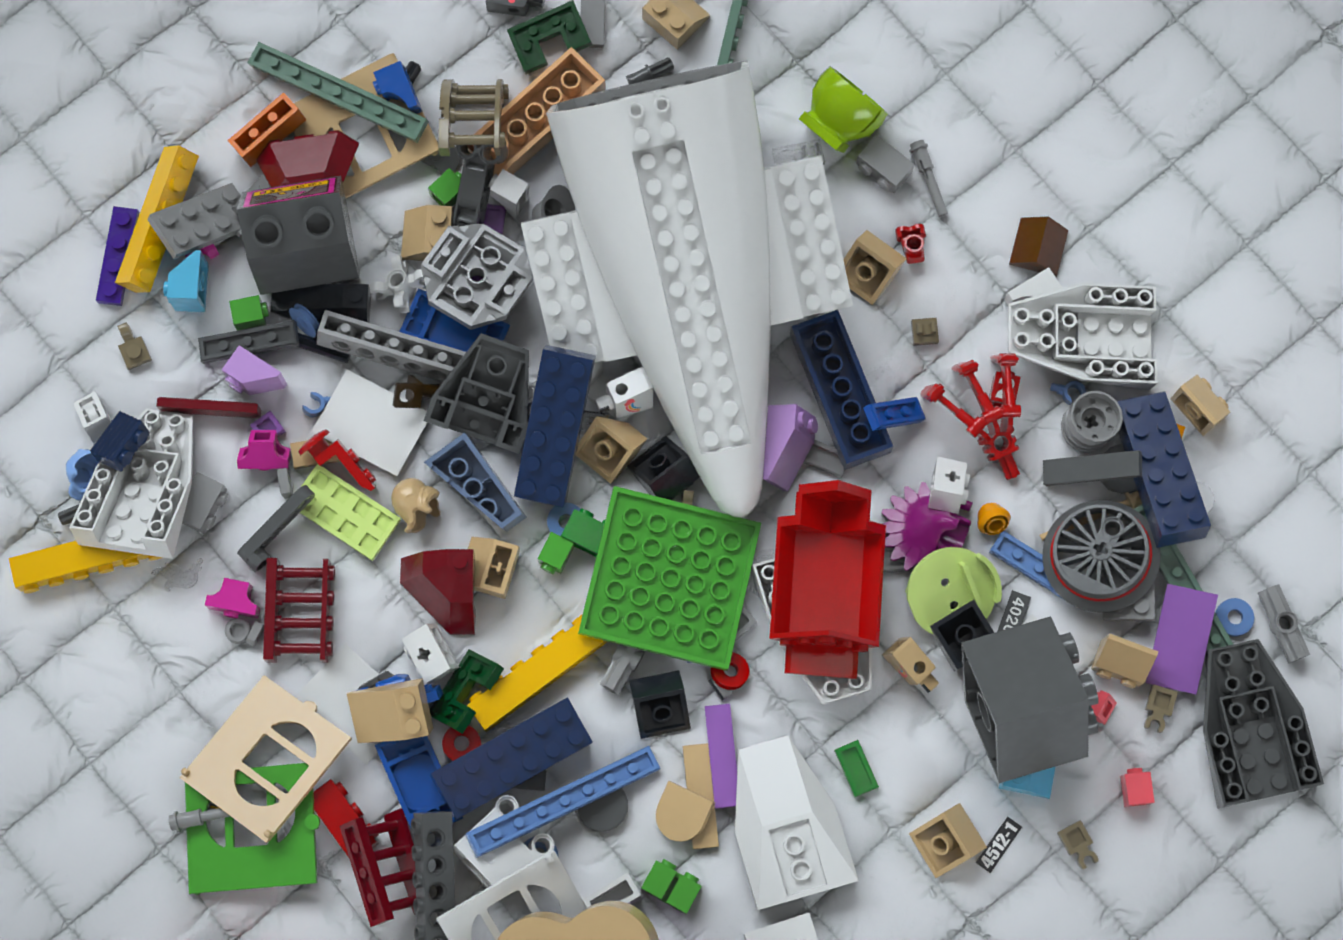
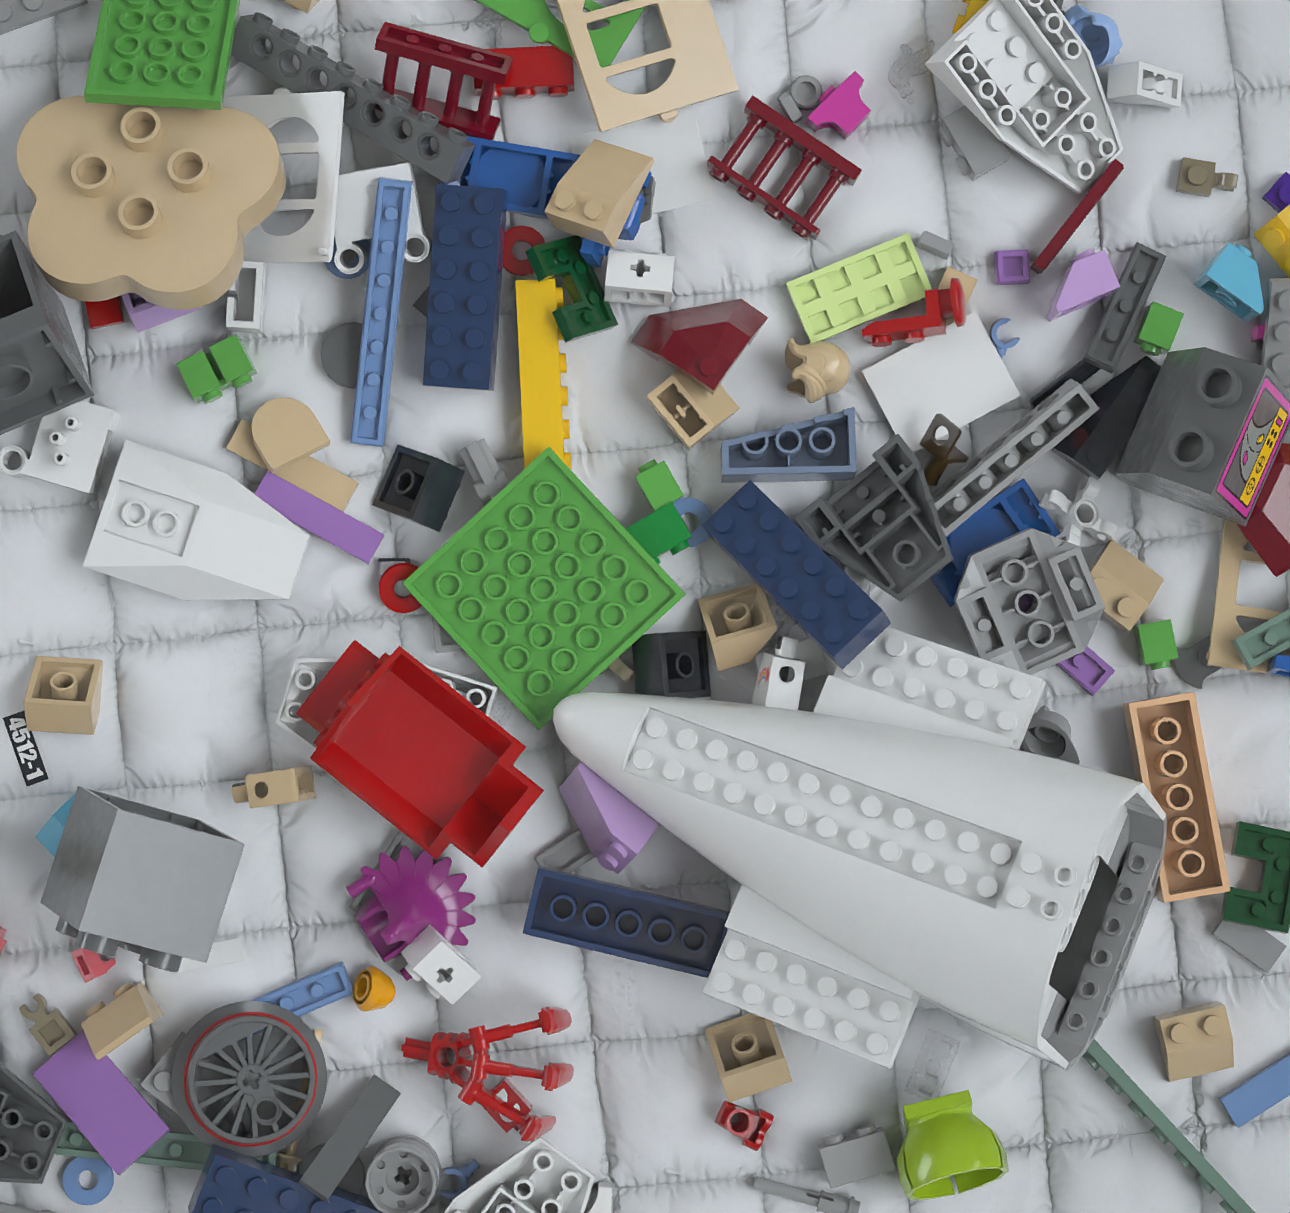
camera: 125 degrees right, 10 degrees up
(120, 441) = (1097, 91): dark blue brick -> none
(254, 551) = (881, 162): dark grey beam -> none
(264, 452) = (984, 243): dark pink brick -> none
(304, 319) = (1106, 382): medium blue piece -> none
(453, 95) = (1253, 705): dark tan fence -> none
(474, 183) = (1142, 676): dark grey piece -> none
(509, 192) = (1104, 705): white arch -> none
(651, 72) = (1143, 962): dark grey axle -> none
(856, 768) = (208, 652): green tile -> none
(894, 413) = (559, 961): blue tile -> none
(924, 331) = (634, 1065): dark tan tile -> none
(959, 627) = (266, 865): black slope -> none
(969, 579) = (316, 912): yellowish green piece -> none
(1014, 610) = (255, 939): dark grey sticker -> none

